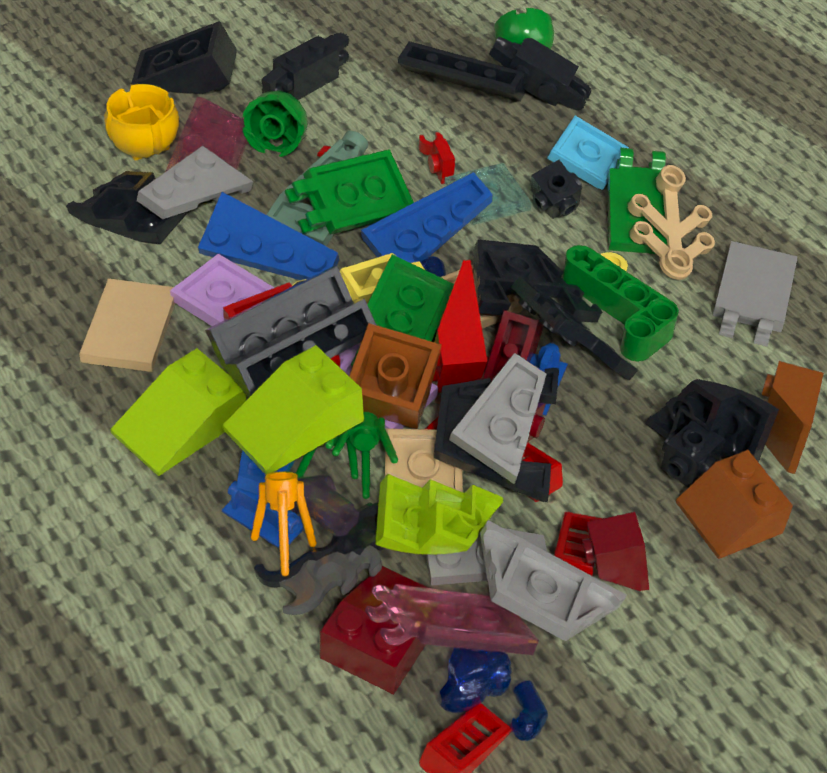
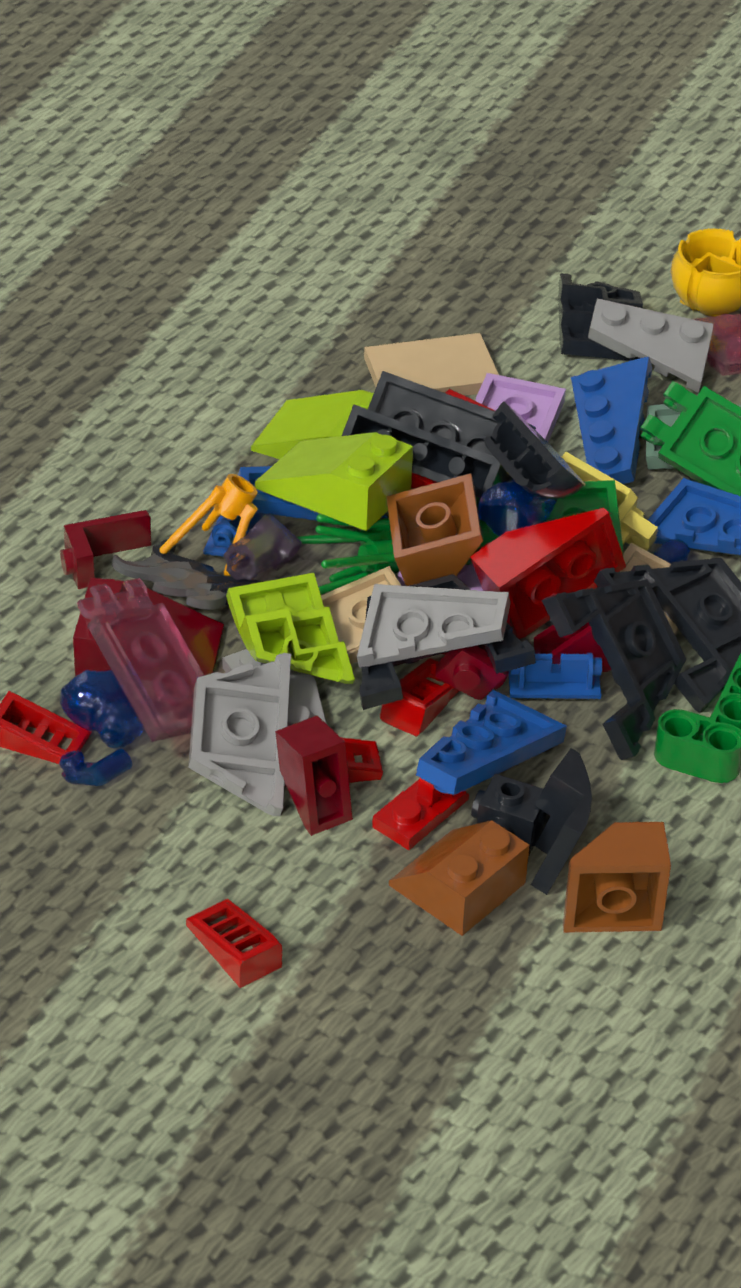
camera: 70 degrees right, 5 degrees down
(245, 637) = (102, 537): none -> dark red bracket
(394, 275) = (530, 457): none -> black brick
(410, 310) = (511, 507): none -> clear blue hair
(618, 439) = (488, 744): none -> blue wing
(654, 514) = (416, 813): none -> red plate
(776, 657) = (241, 967): none -> red slope

